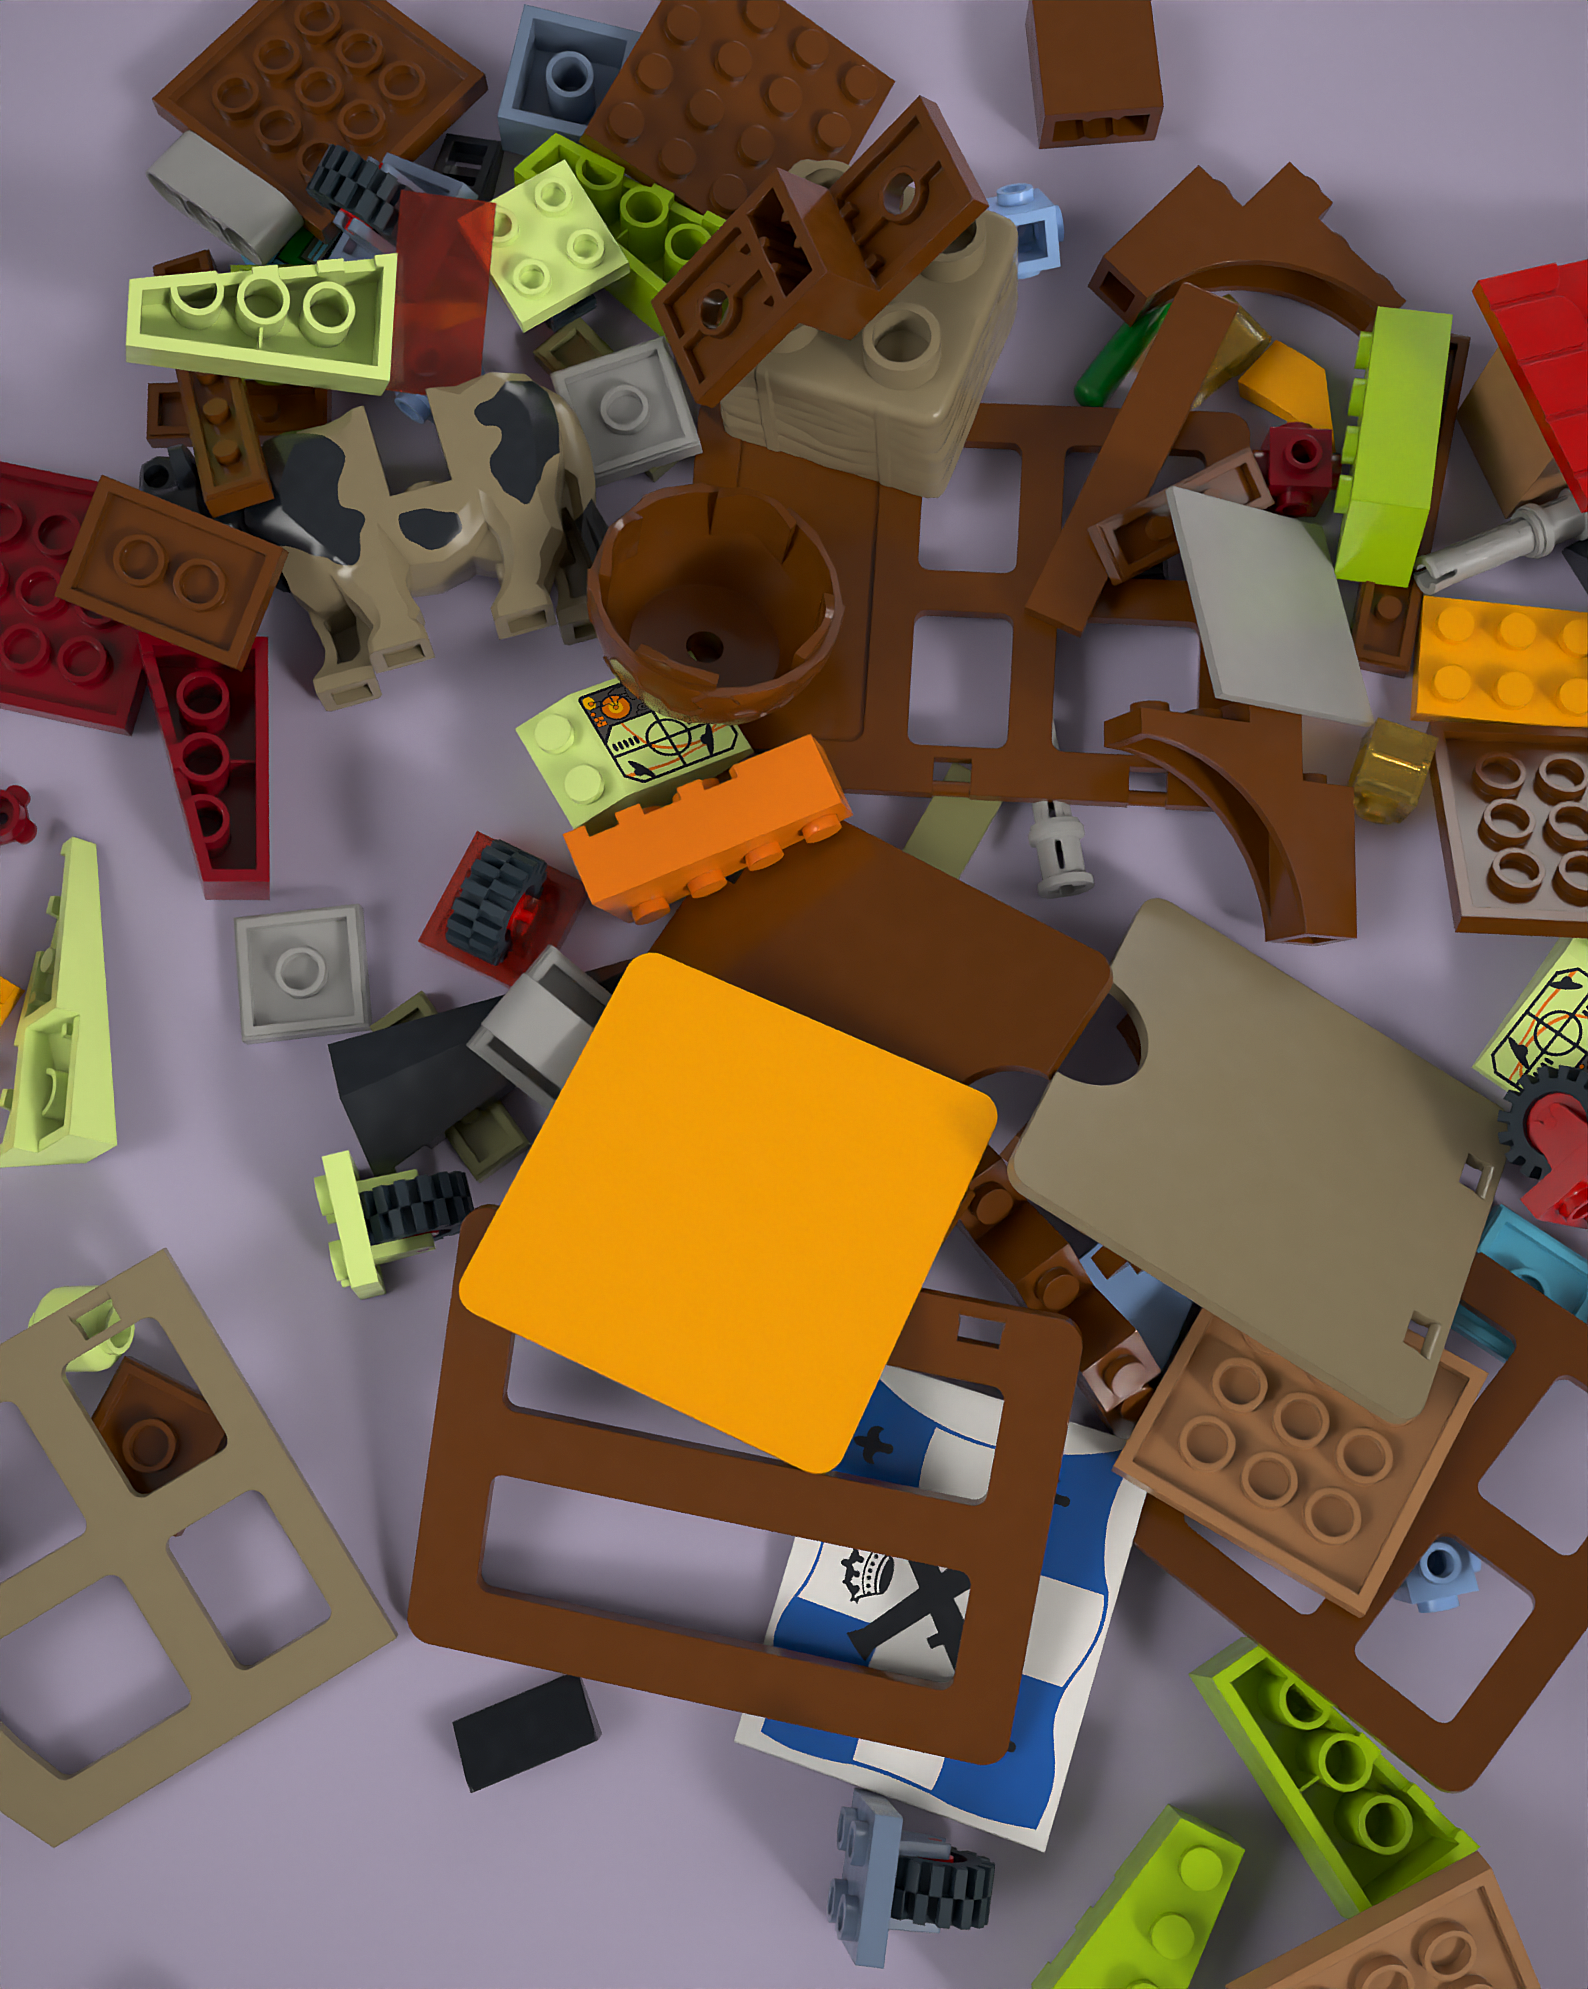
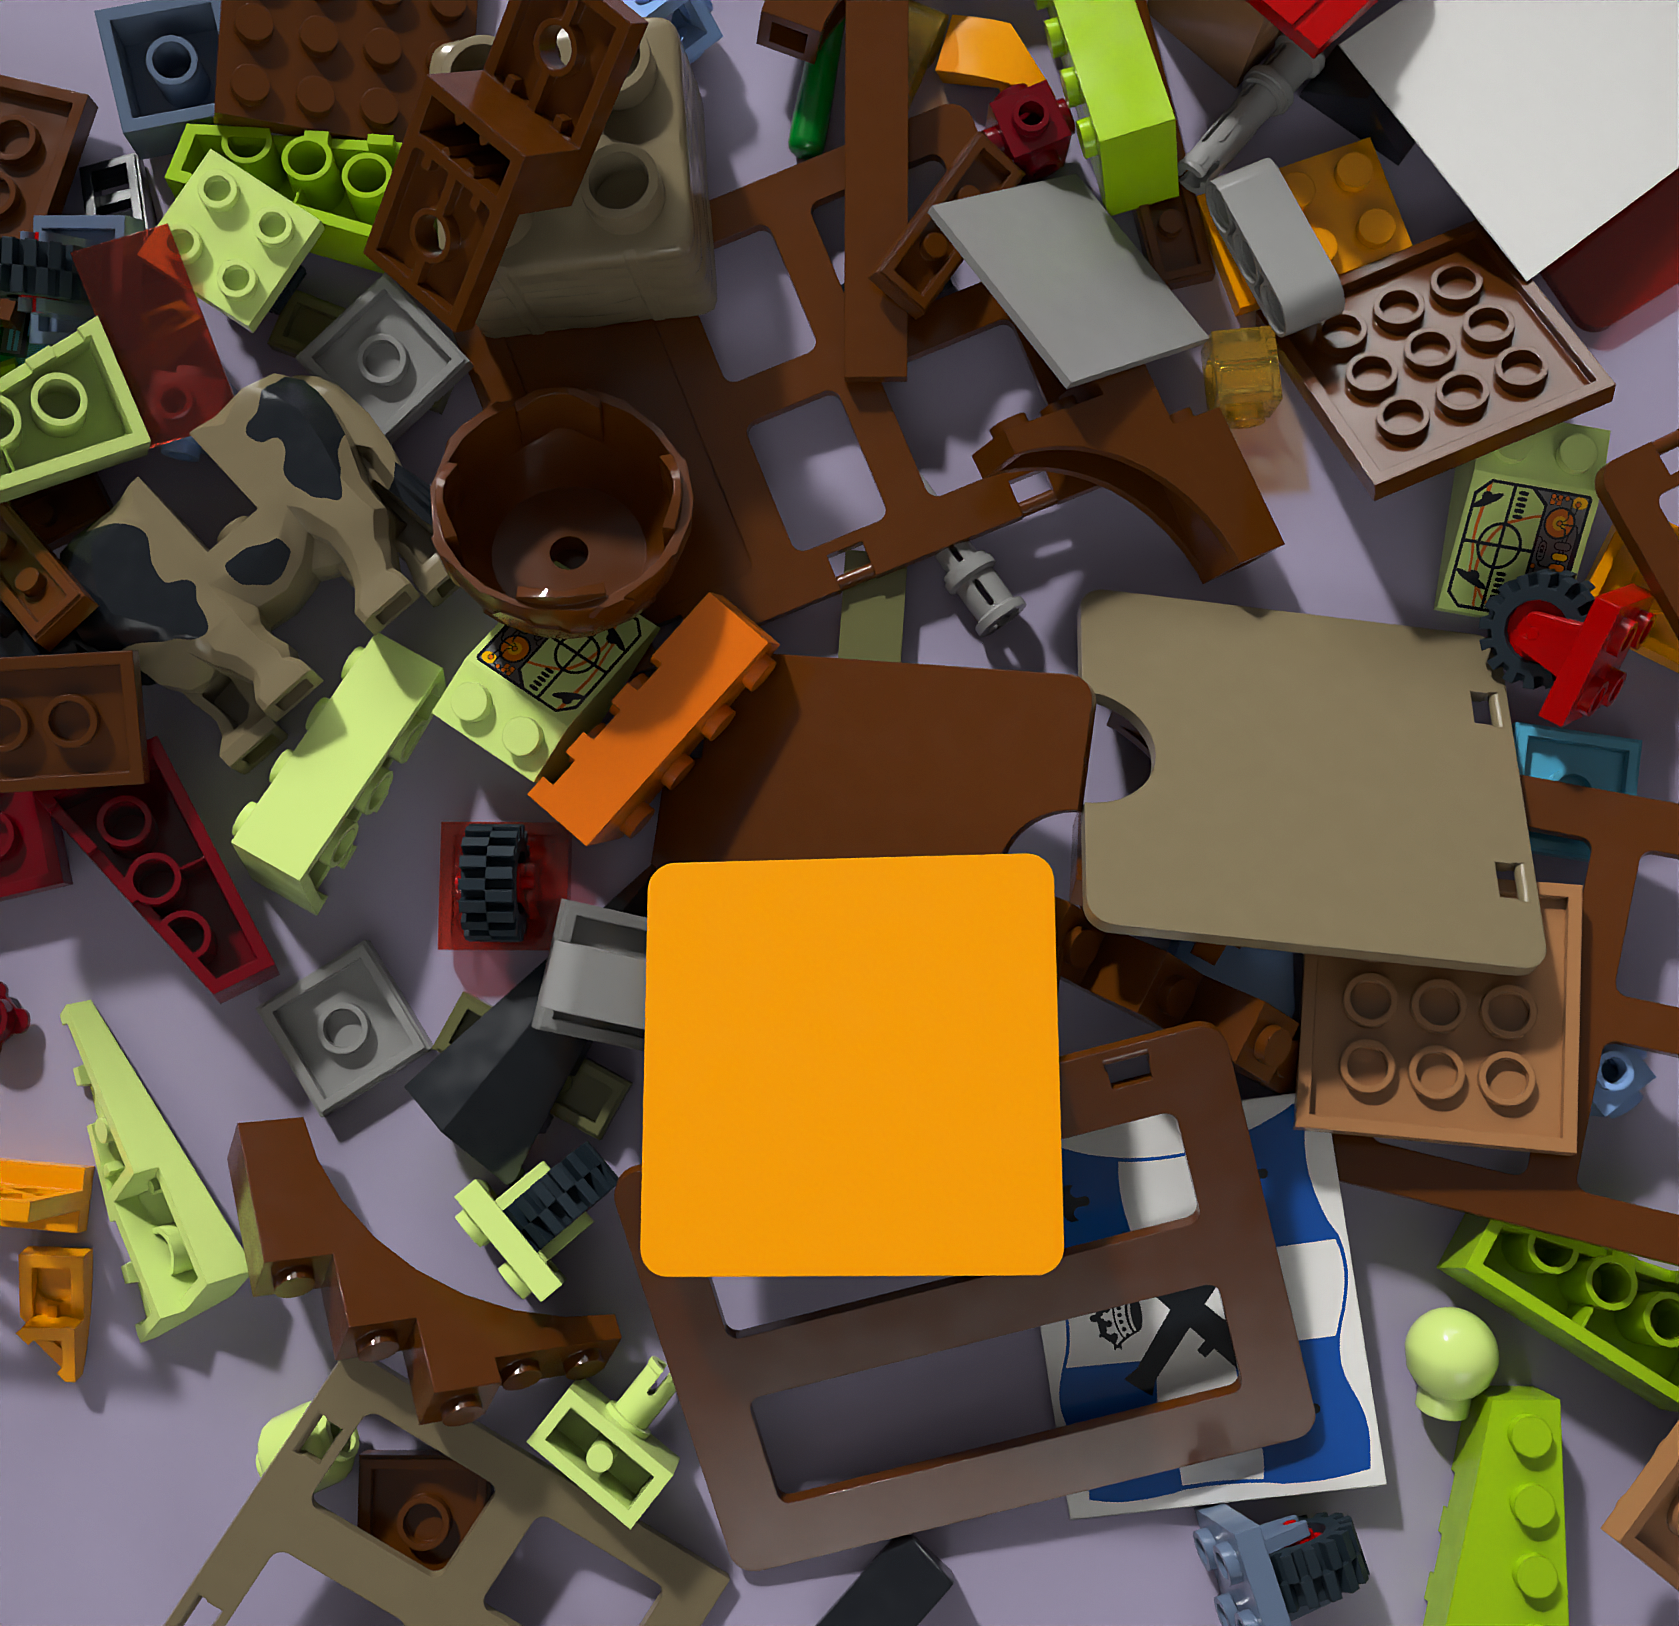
camera: 25 degrees left, 5 degrees up
(209, 1225) = (377, 1303): none -> reddish brown arch
(350, 1454) = (608, 1442): none -> yellowish green brick
(407, 744) = (337, 771): none -> yellowish green wedge
(1159, 1766) = (1450, 1360): none -> yellowish green piece
(1471, 668) = (1275, 247): none -> light grey beam

